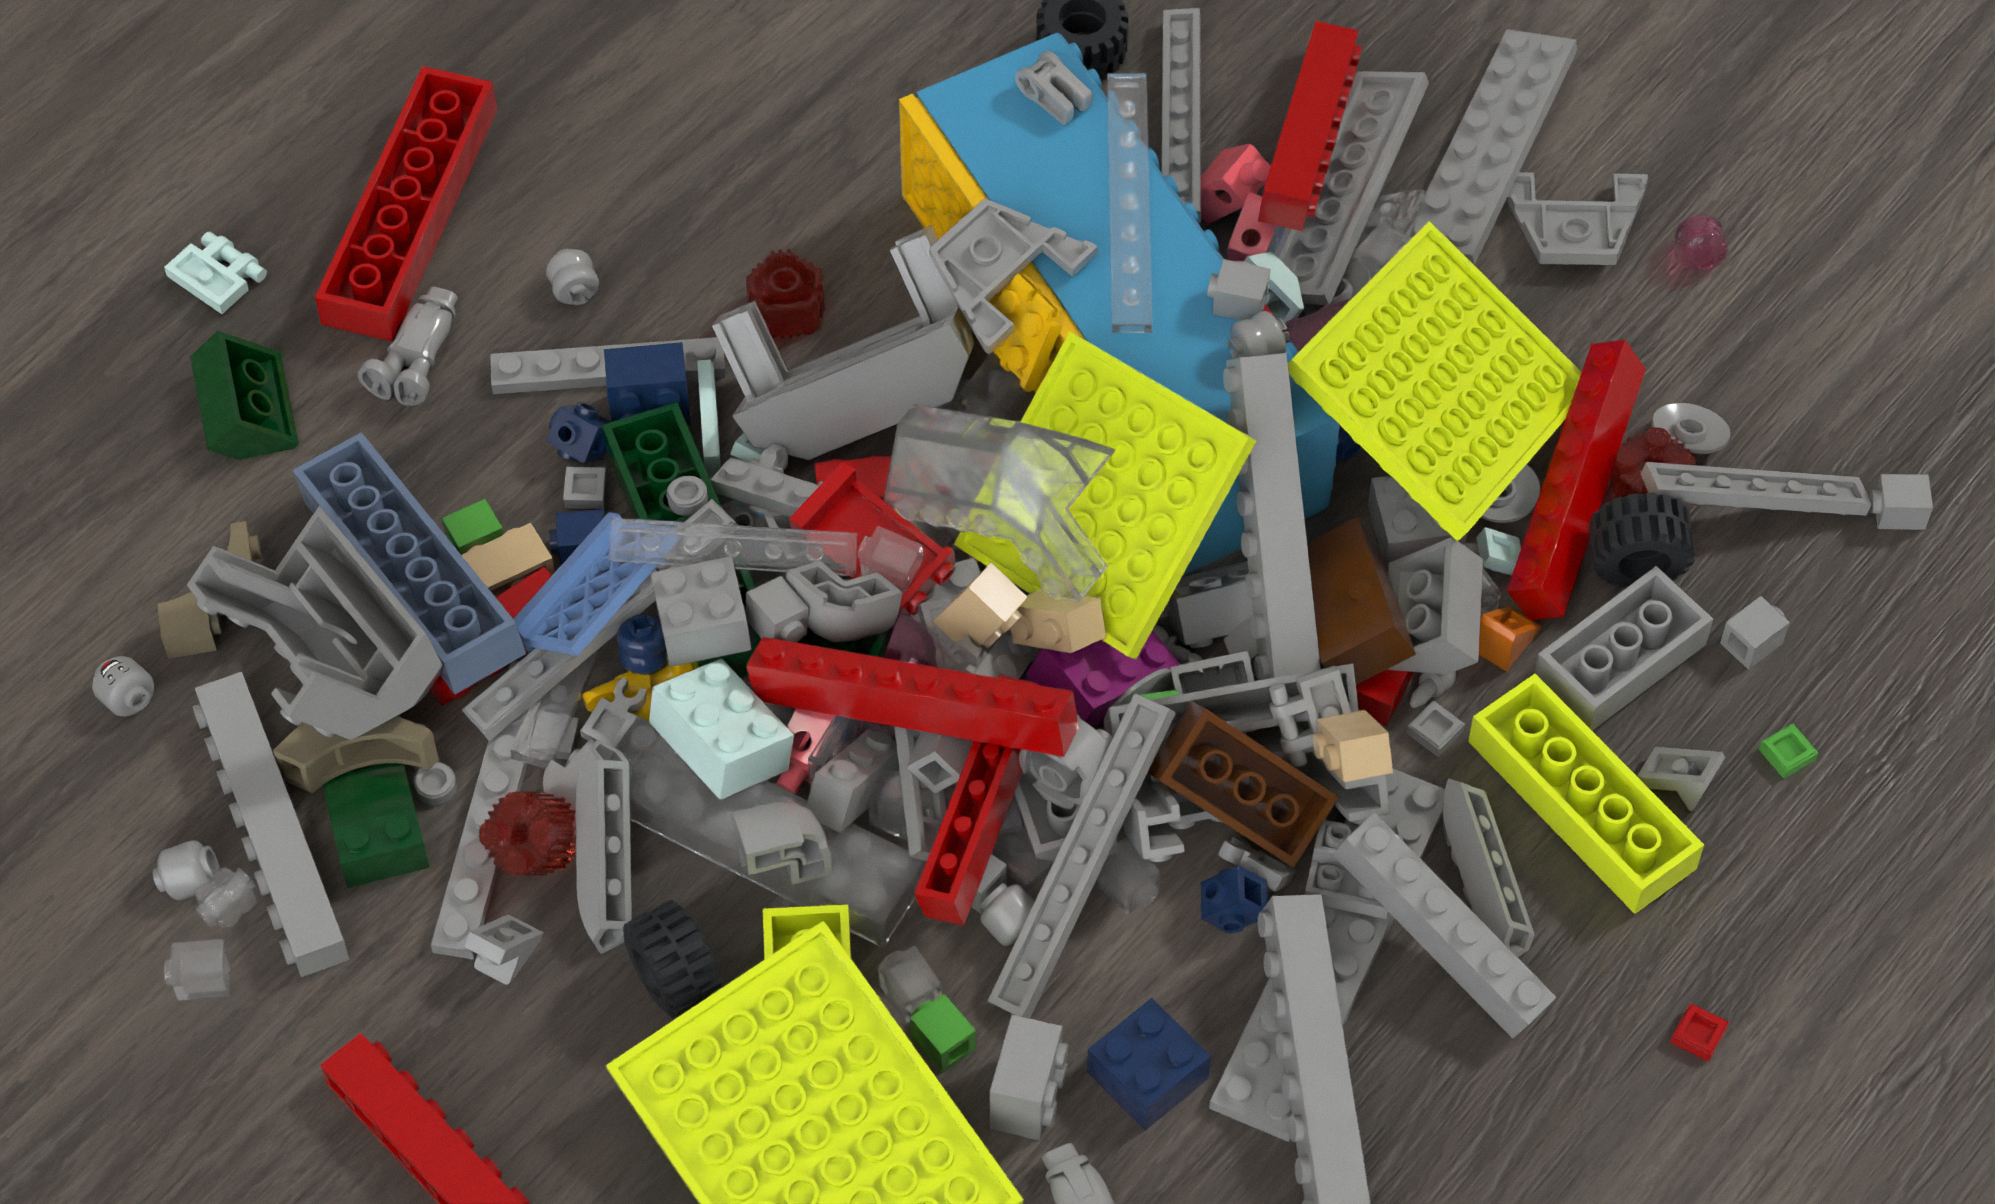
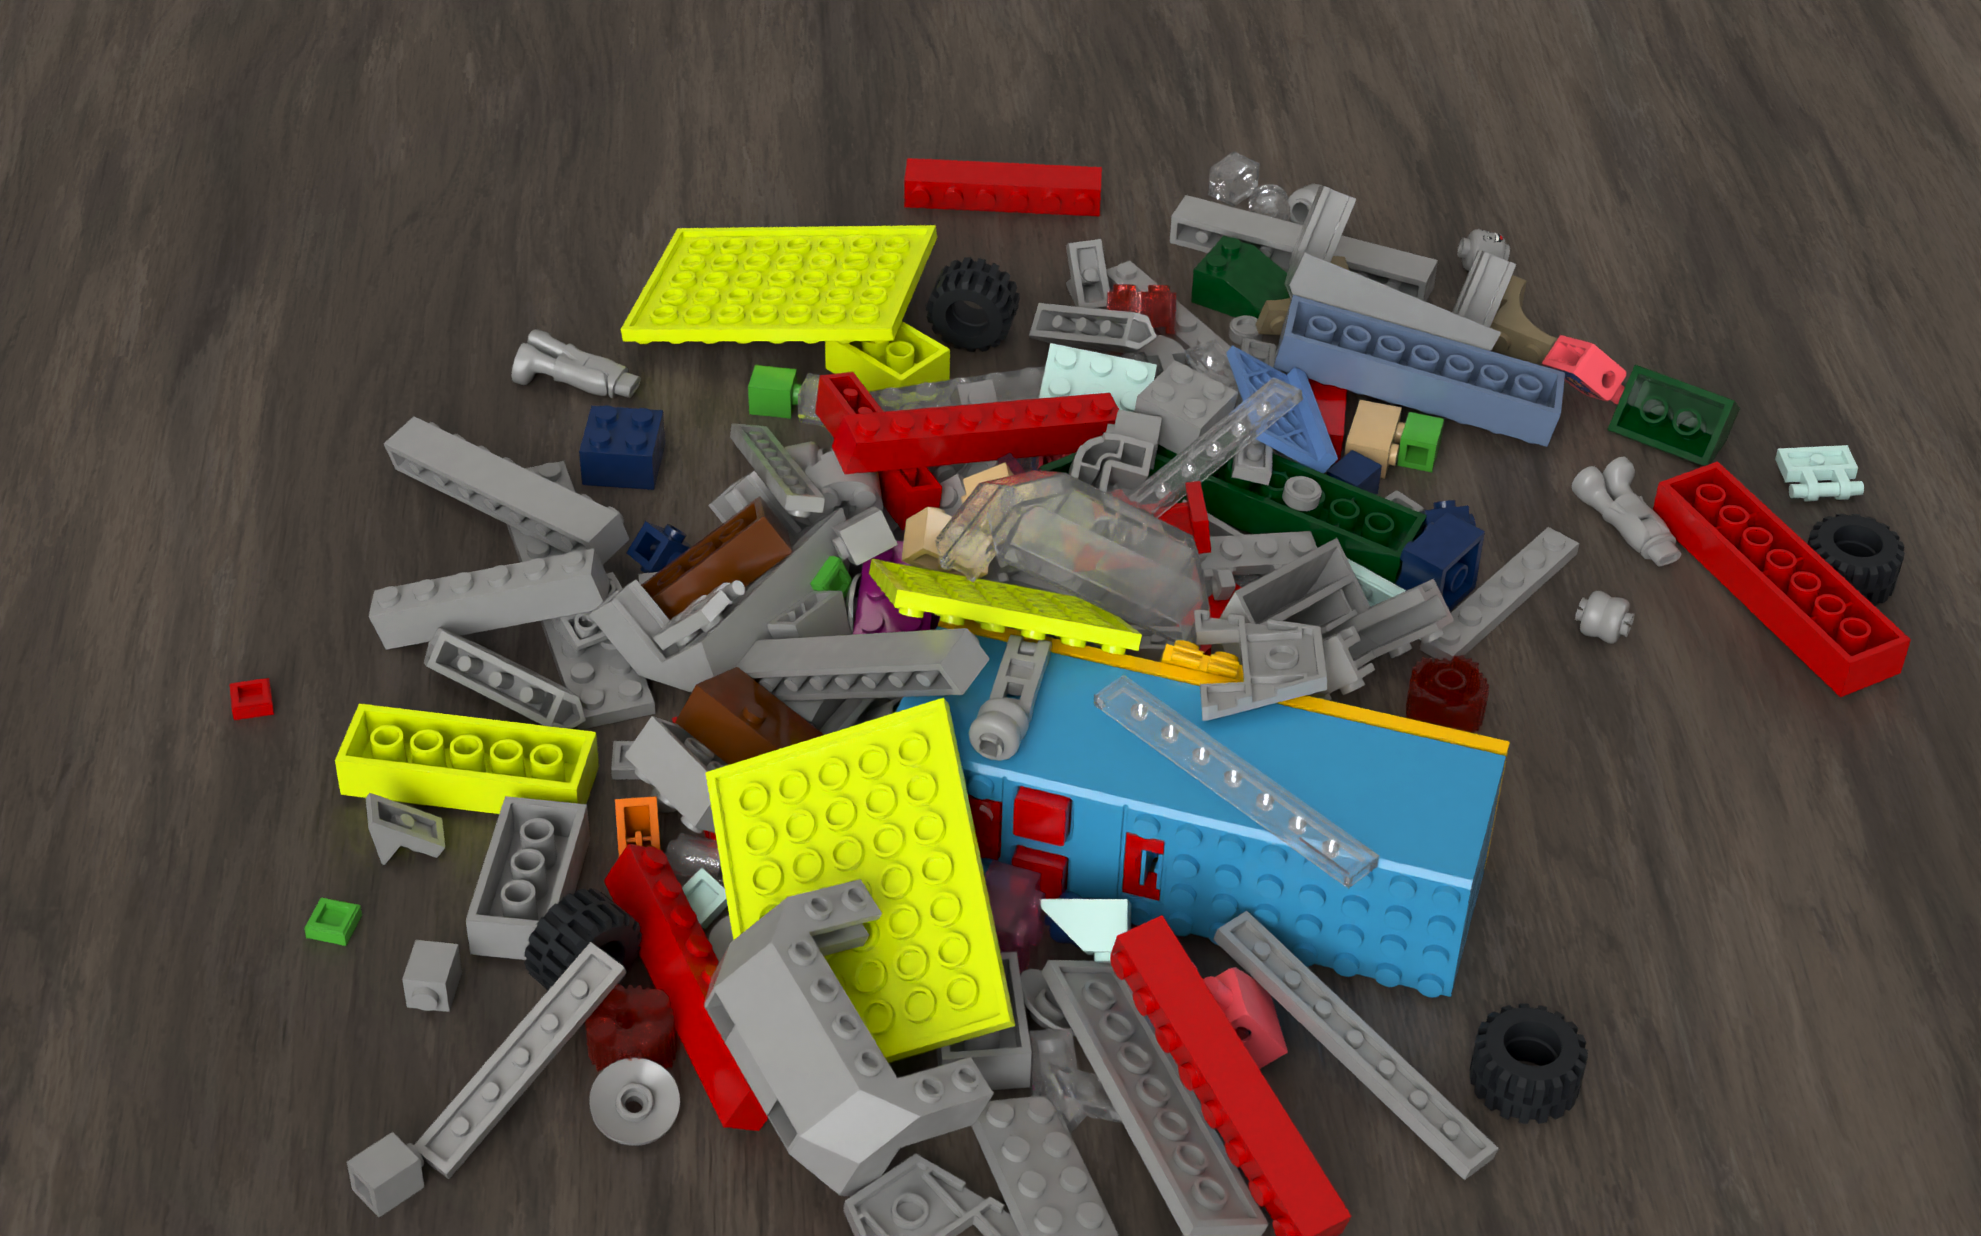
camera: 135 degrees right, 15 degrees down
(260, 471) = (1587, 368): none -> coral torso
(324, 153) = (1861, 552): none -> black tyre
(782, 836) = (971, 345): light grey brick -> none
(1028, 1078) = (688, 384): light grey brick -> none
(1054, 87) = (1399, 813): light grey piece -> none
(1116, 674) = (863, 536): none -> light grey brick
(1189, 374) = (1022, 671): none -> light grey plate
(1239, 289) = (1056, 757): light grey brick -> none
(1353, 746) = (644, 593): tan brick -> none
(1587, 306) = (812, 1052): none -> light grey wedge

